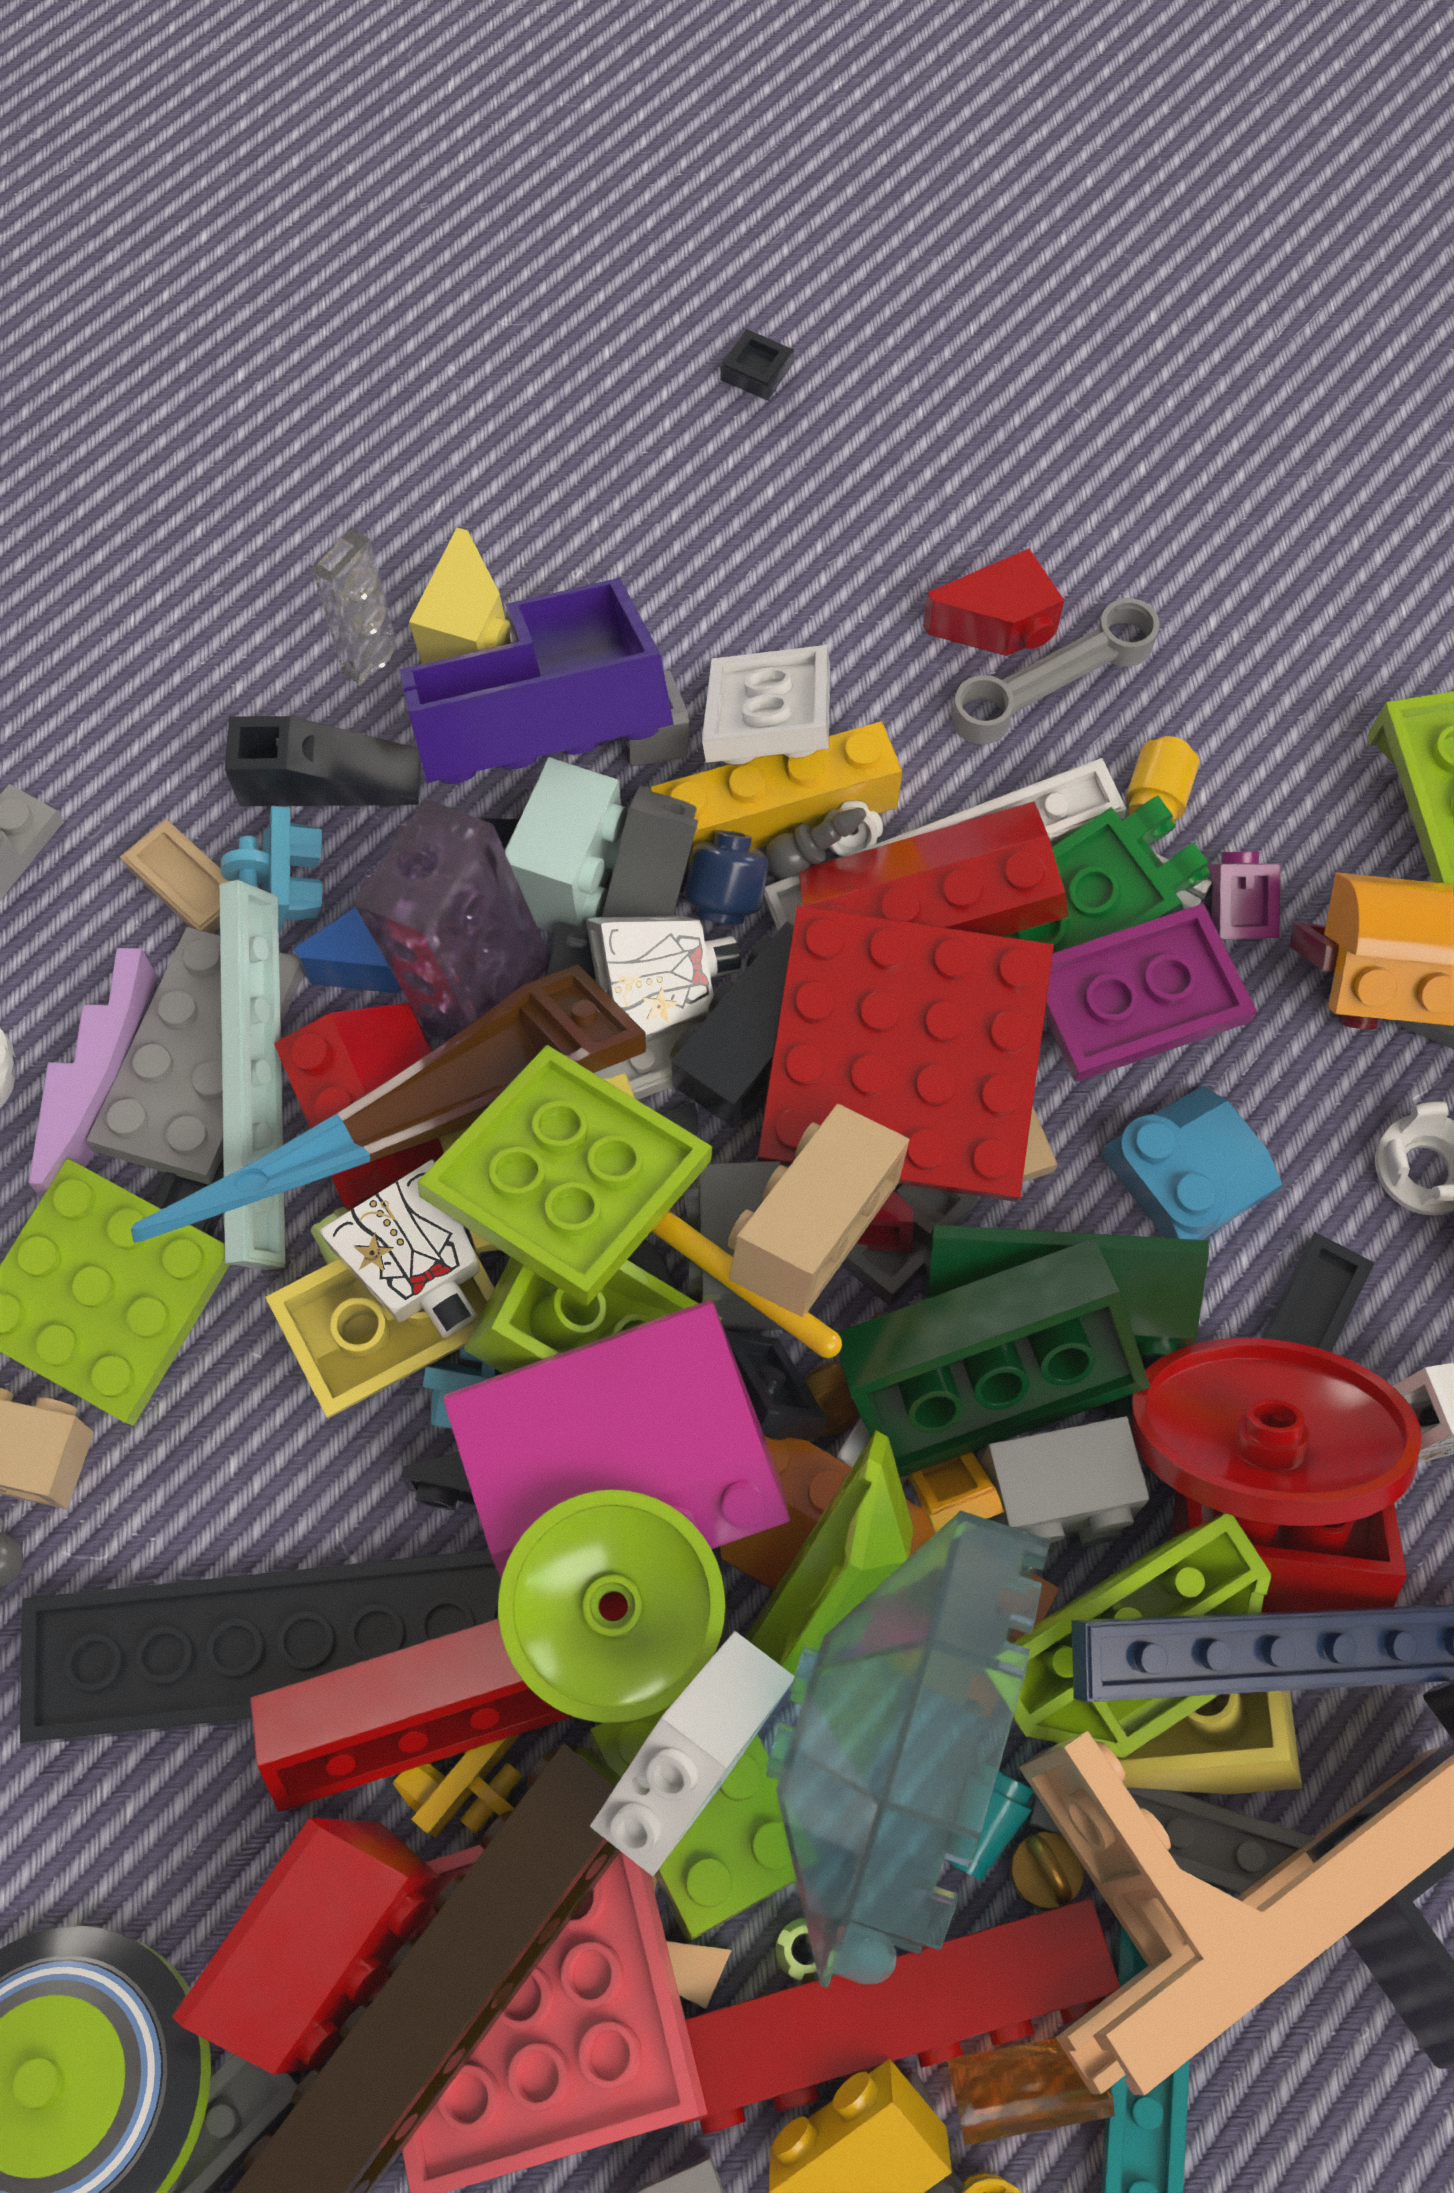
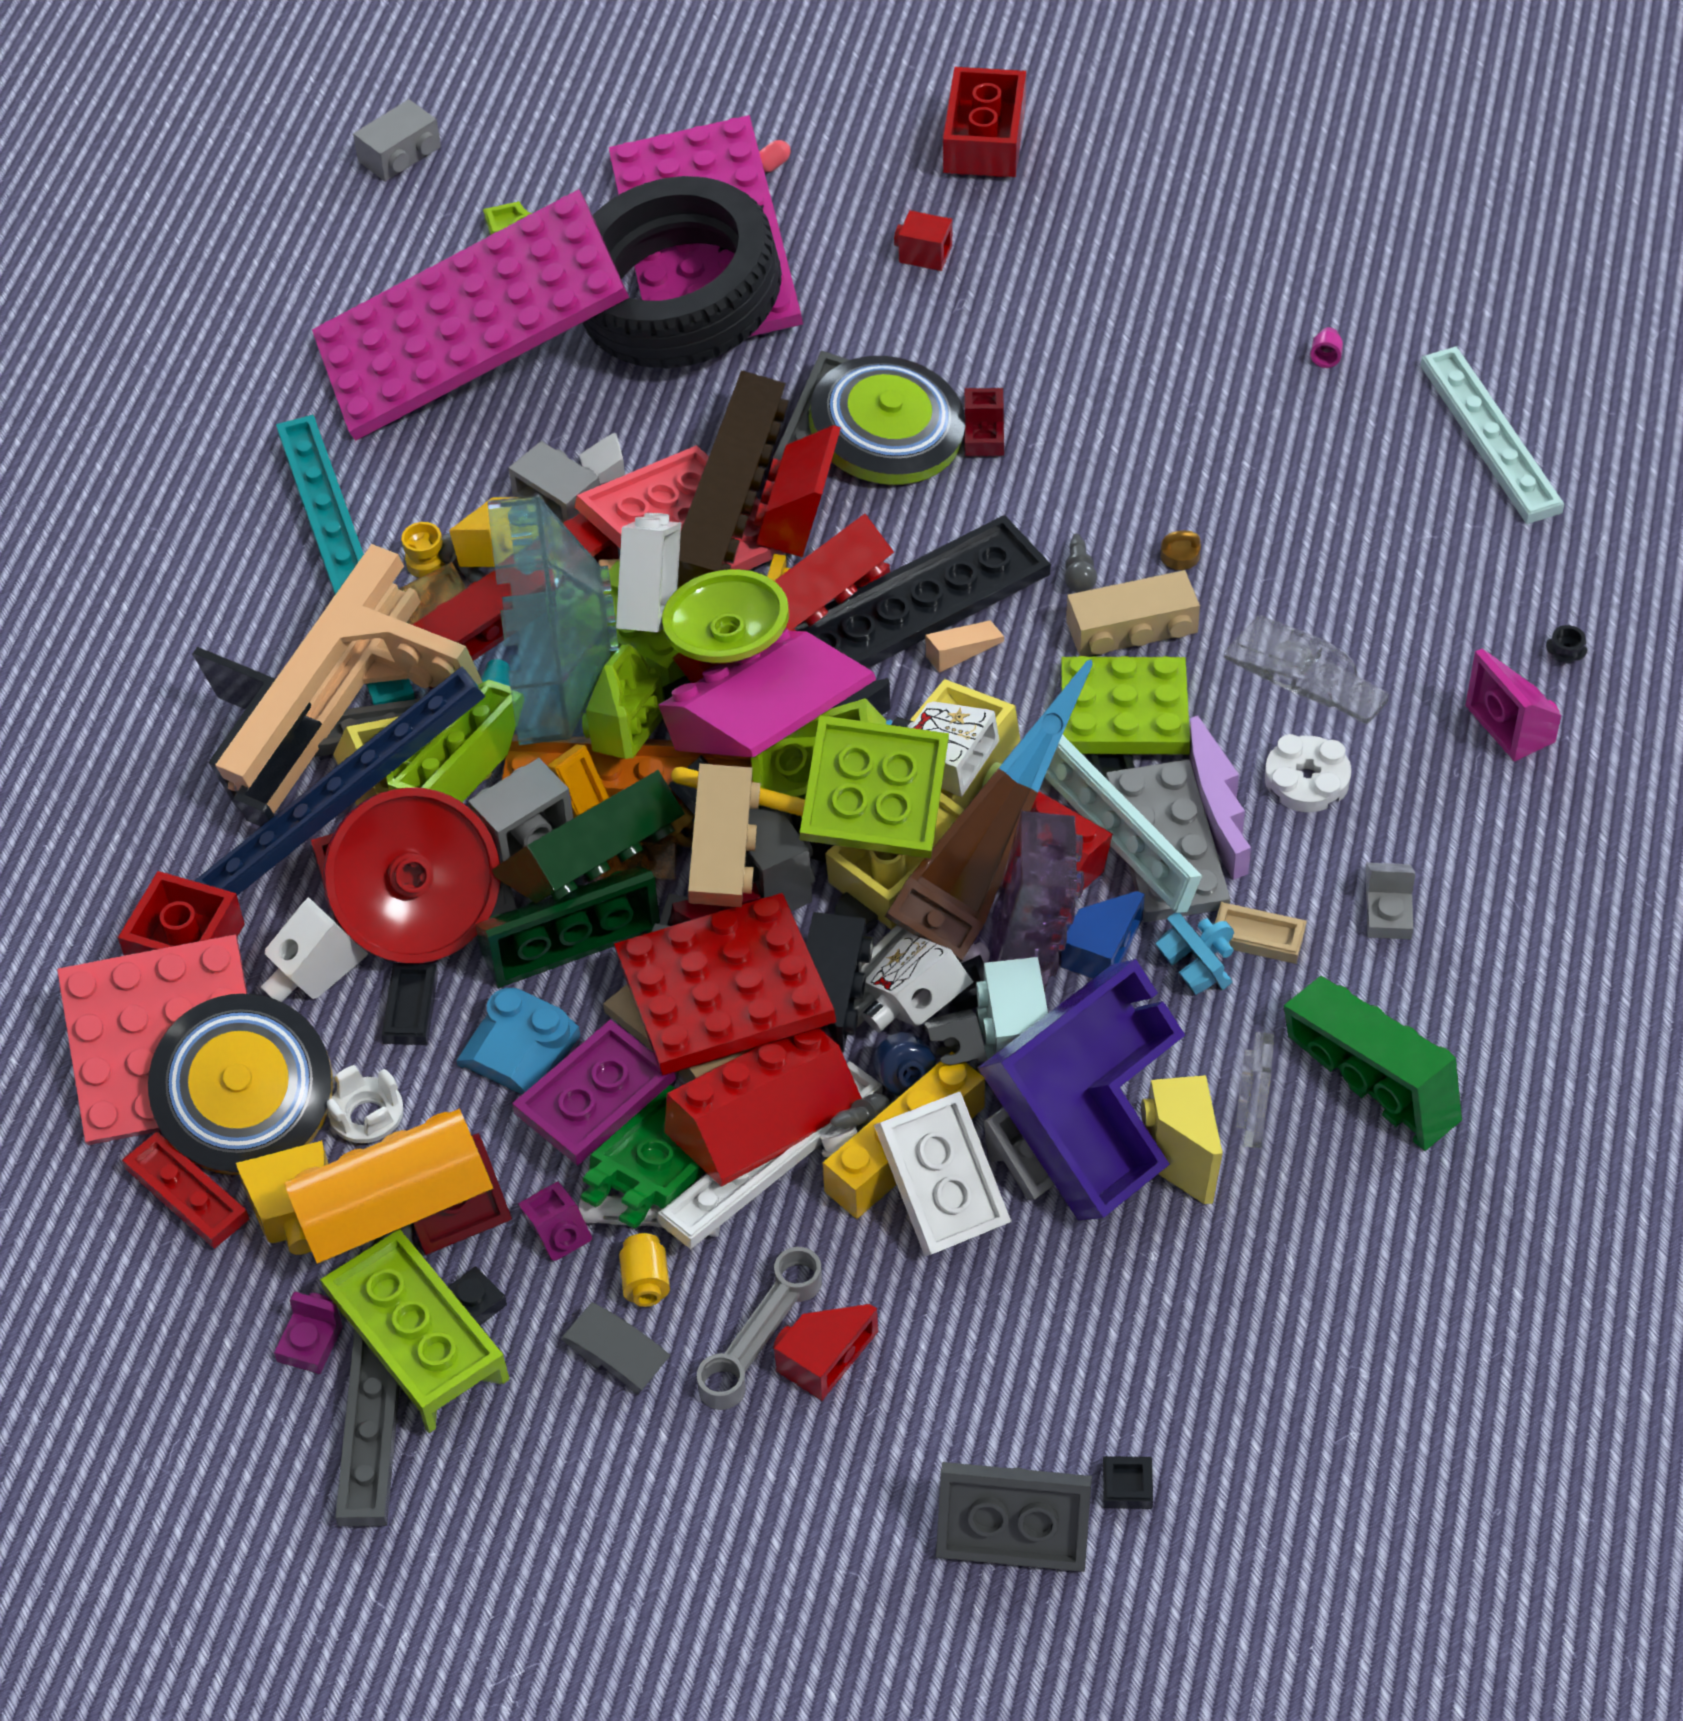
camera: 155 degrees right, 15 degrees down
(182, 630) = (1378, 1058): none -> green wedge
(241, 1533) = (958, 644): none -> light nougat piece
(316, 765) = (1226, 1014): black slope -> none
(897, 347) = (1013, 1516): none -> dark grey plate
(1235, 717) = (616, 1345): none -> dark grey slope
(1375, 850) = (478, 1295): none -> black plate

